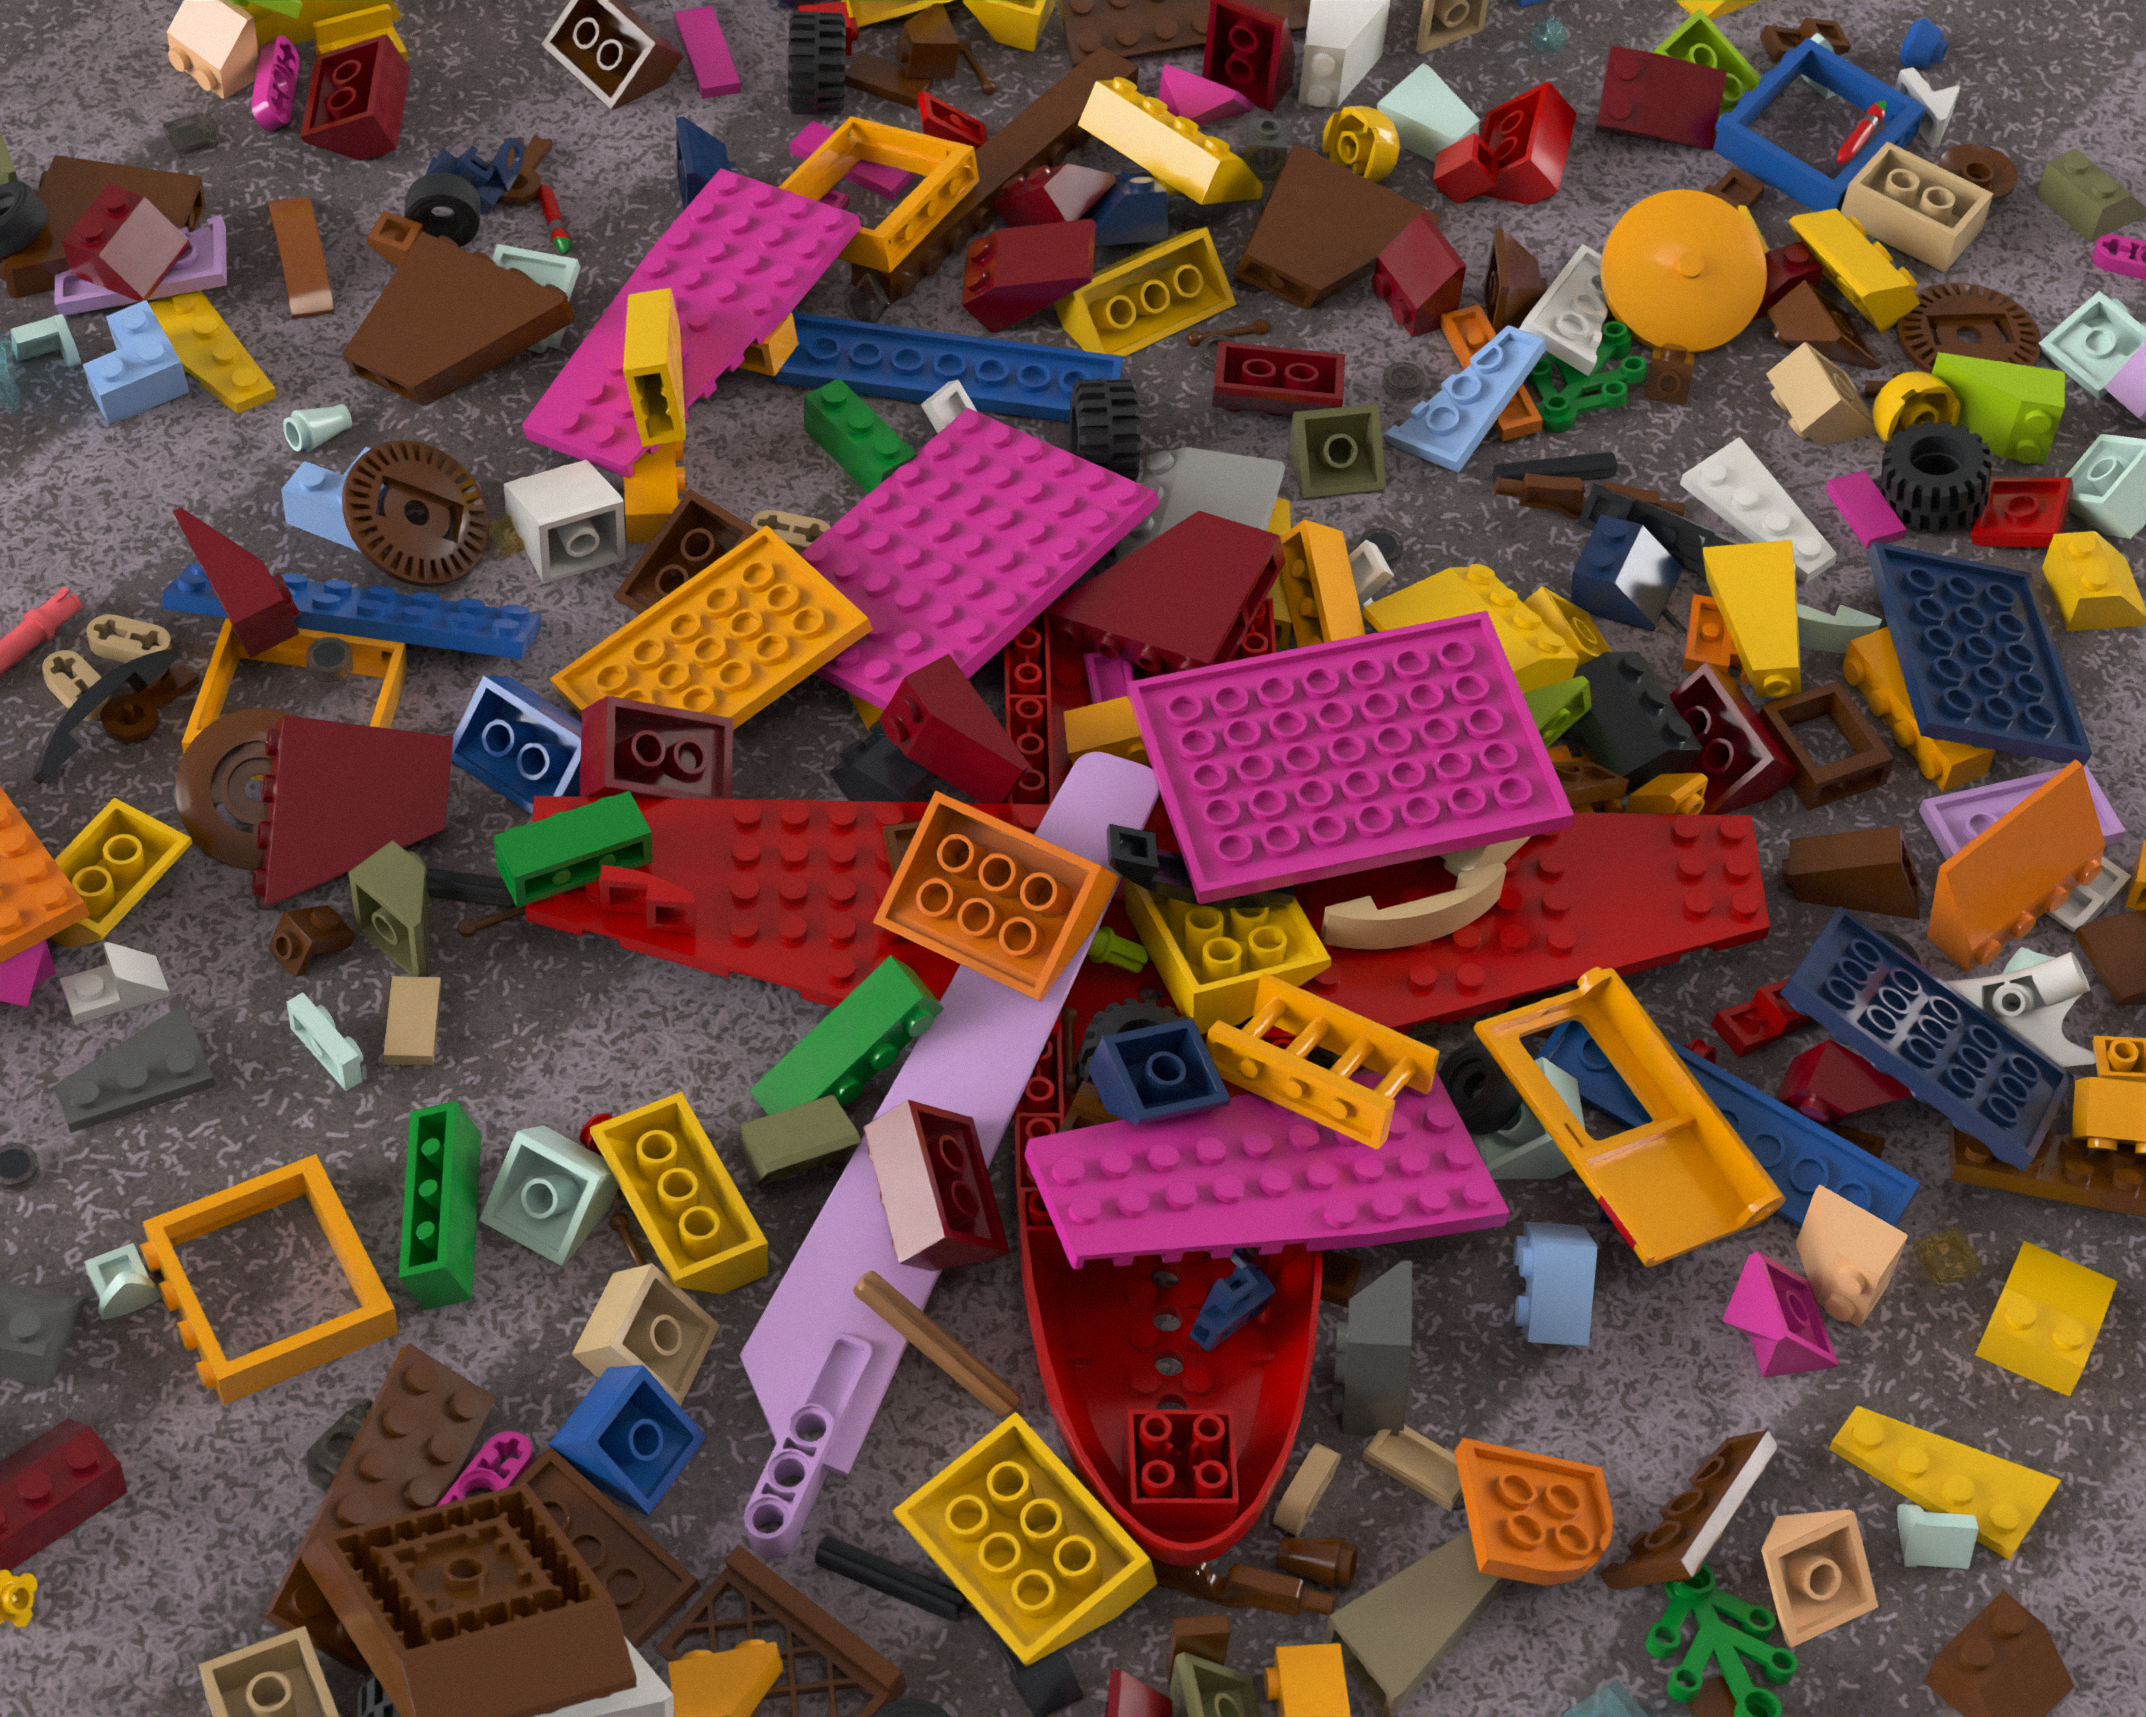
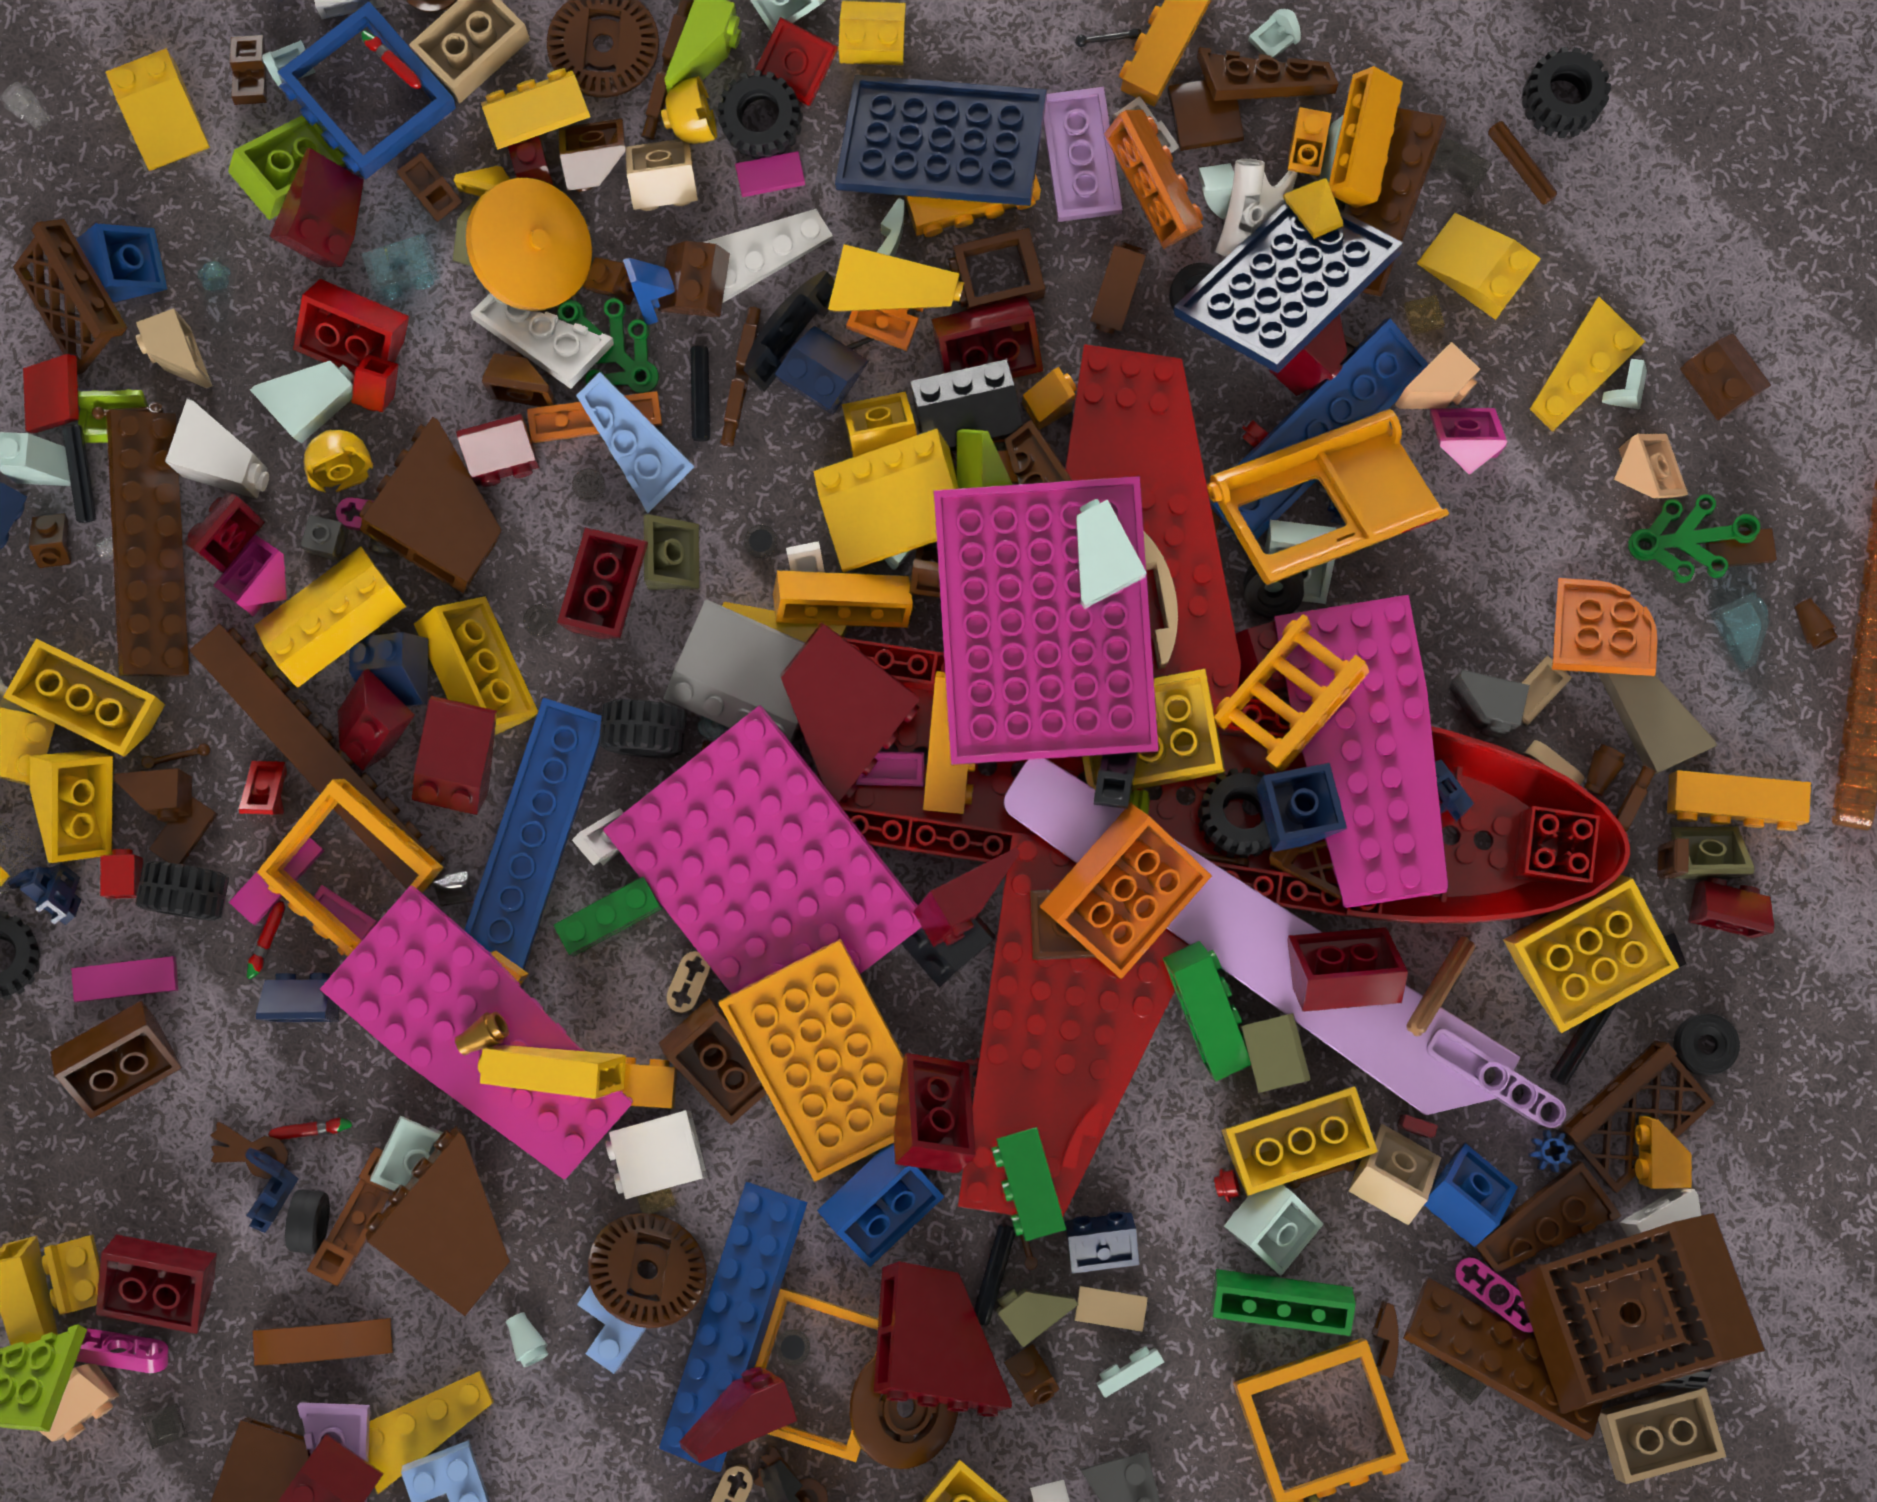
camera: 80 degrees left, 30 degrees up
(377, 1353) = (1387, 1328): none -> reddish brown slope
(503, 993) = (1102, 1242): none -> bracket
(693, 300) = (483, 1033): none -> pearl gold cone
(695, 1544) = (1542, 1145): none -> blue gear
(721, 1357) = (1417, 1126): none -> dark red tile
(769, 158) = (265, 940): none -> red piece
(1259, 327) = (514, 583): reddish brown hinge -> none
(1450, 776) = (1104, 554): none -> light aqua slope
(1559, 1283) = (1429, 572): light blue brick -> none
(1613, 178) = (384, 263): none -> clear light blue brick
(1668, 382) = (648, 284): none -> blue slope
(1696, 1516) = (1617, 538): reddish brown wing -> none
(1698, 435) = (698, 278): none -> reddish brown slope
(1759, 1020) = (1222, 378): red slope -> none
(2048, 1074) = (1315, 207): none -> yellow slope

